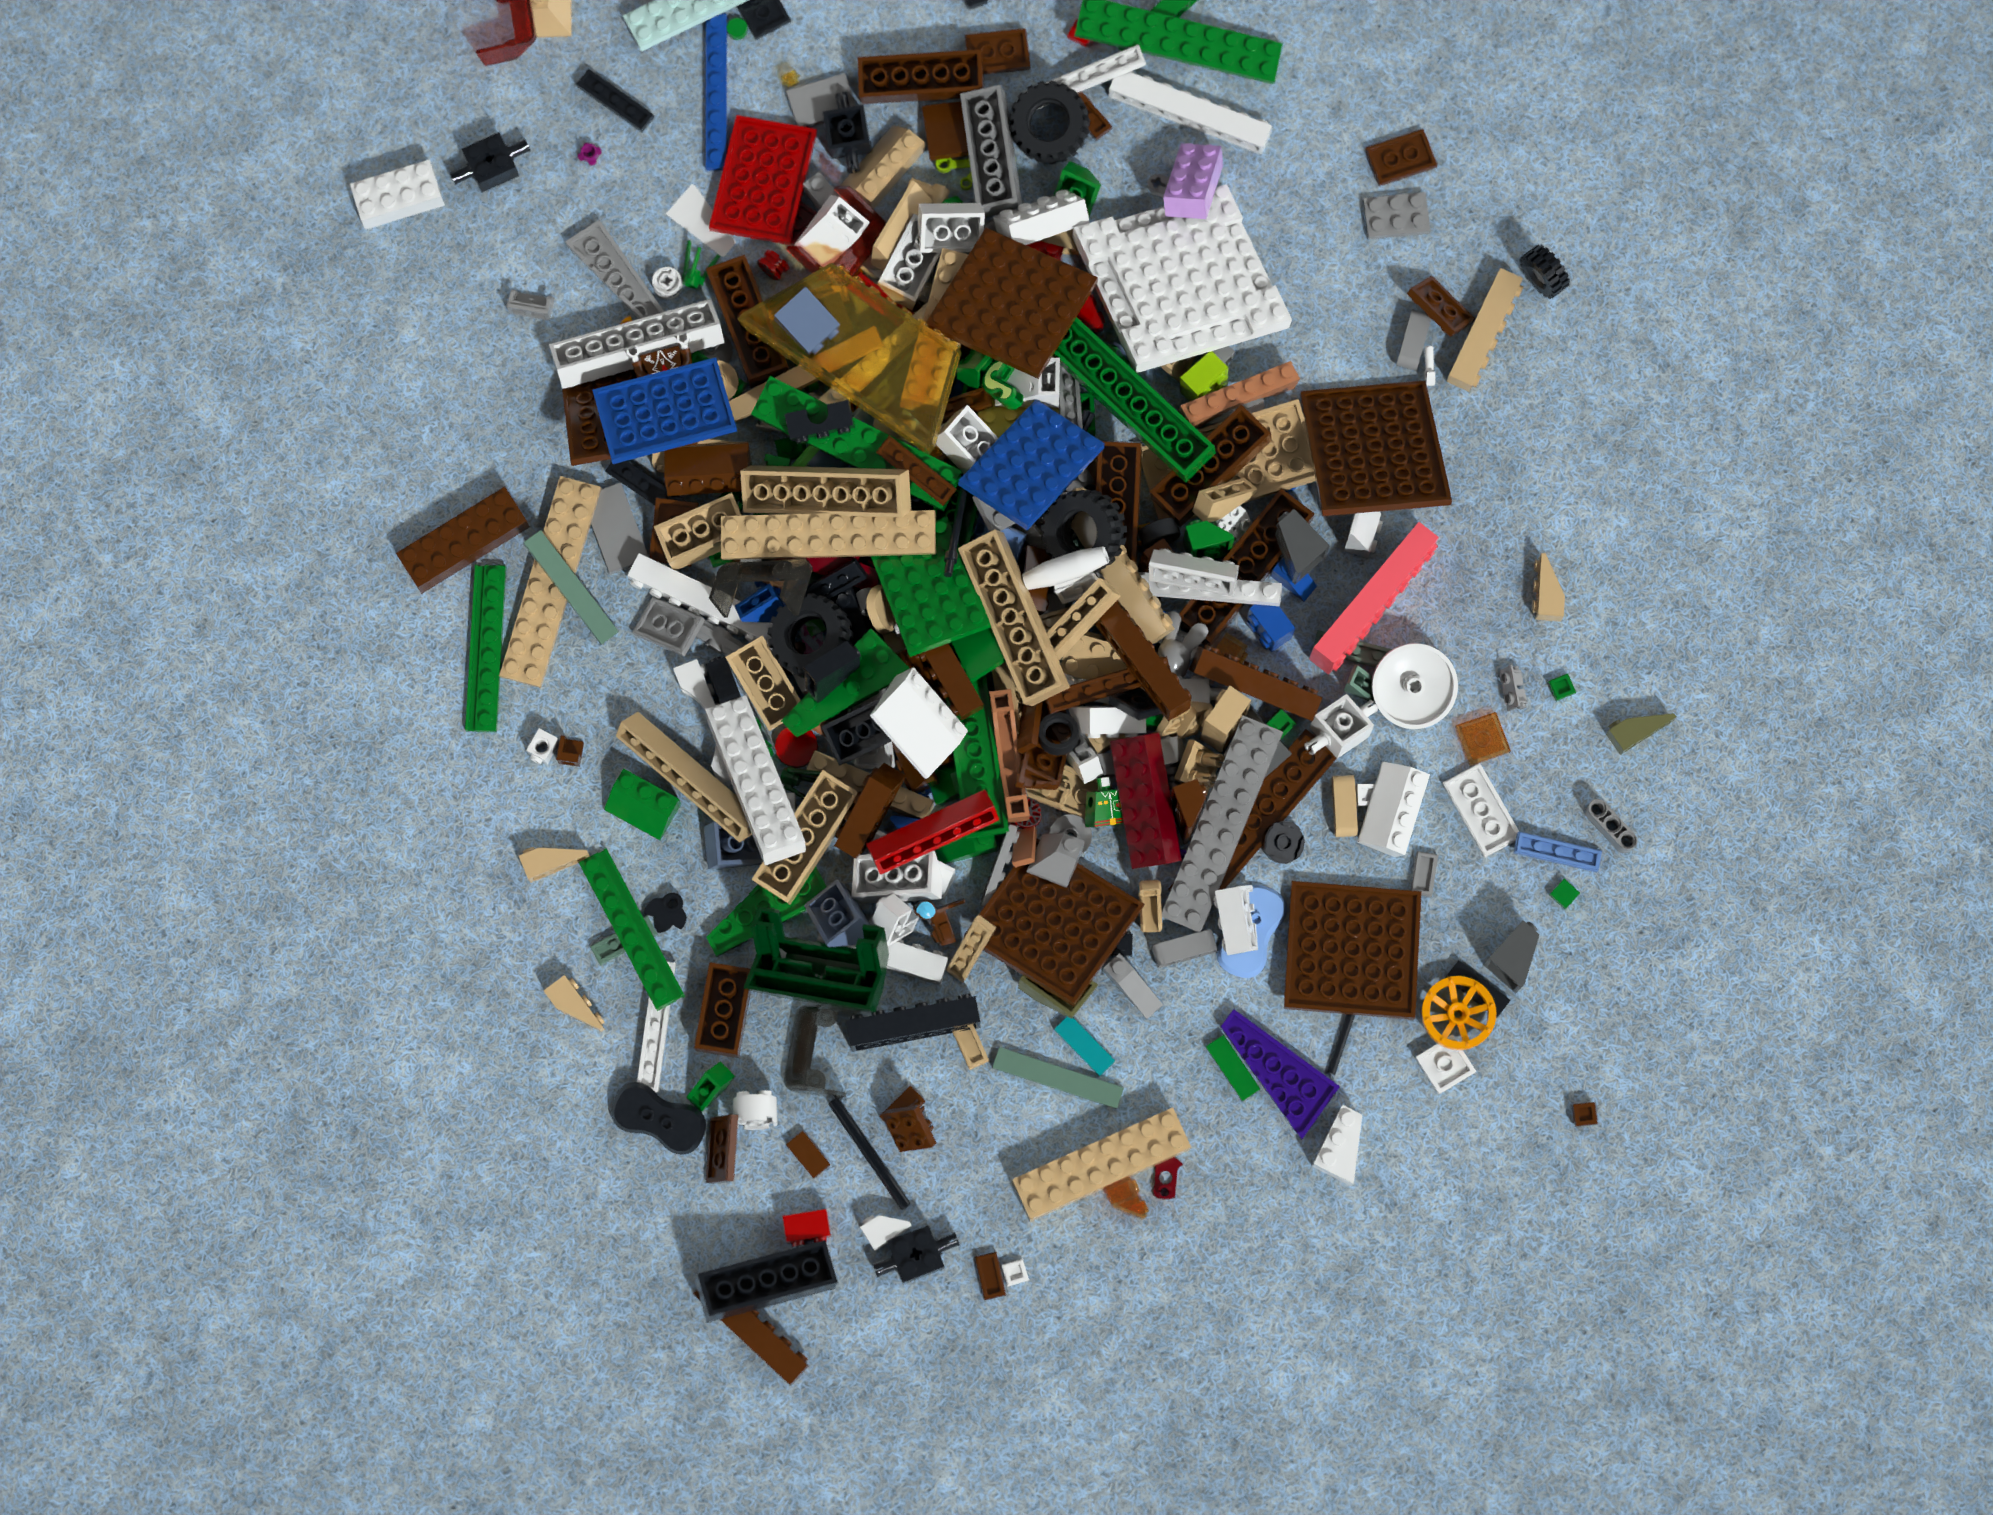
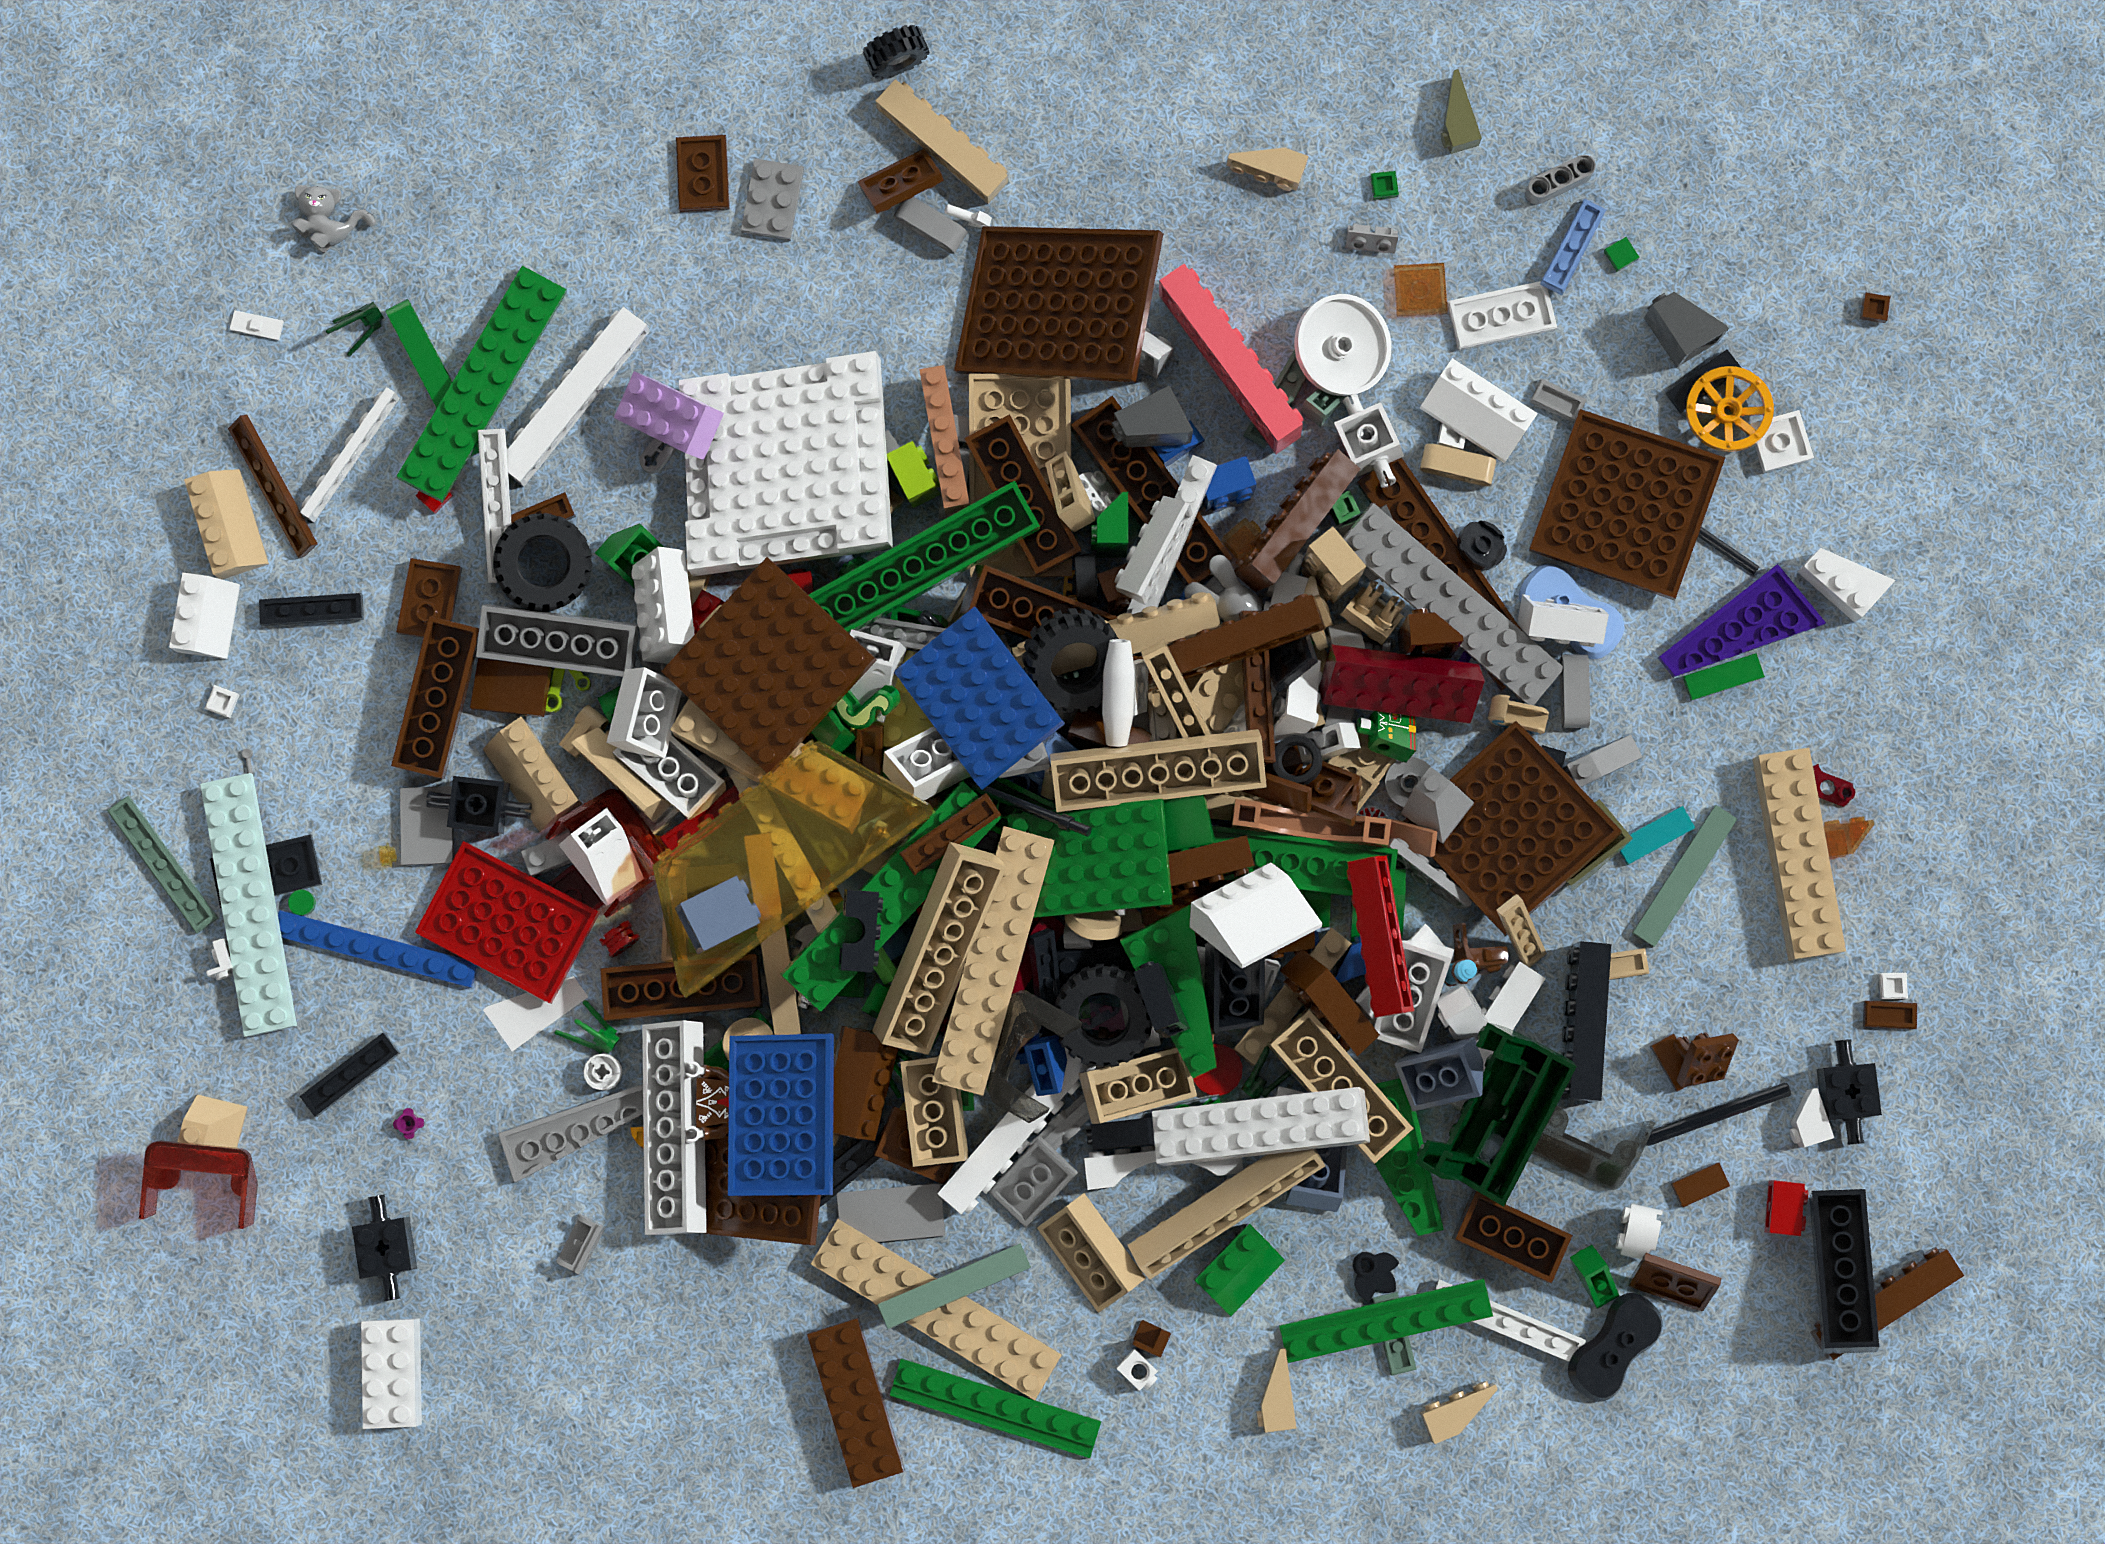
camera: 75 degrees left, 5 degrees up
(625, 686) = (1091, 1253): none -> tan slope

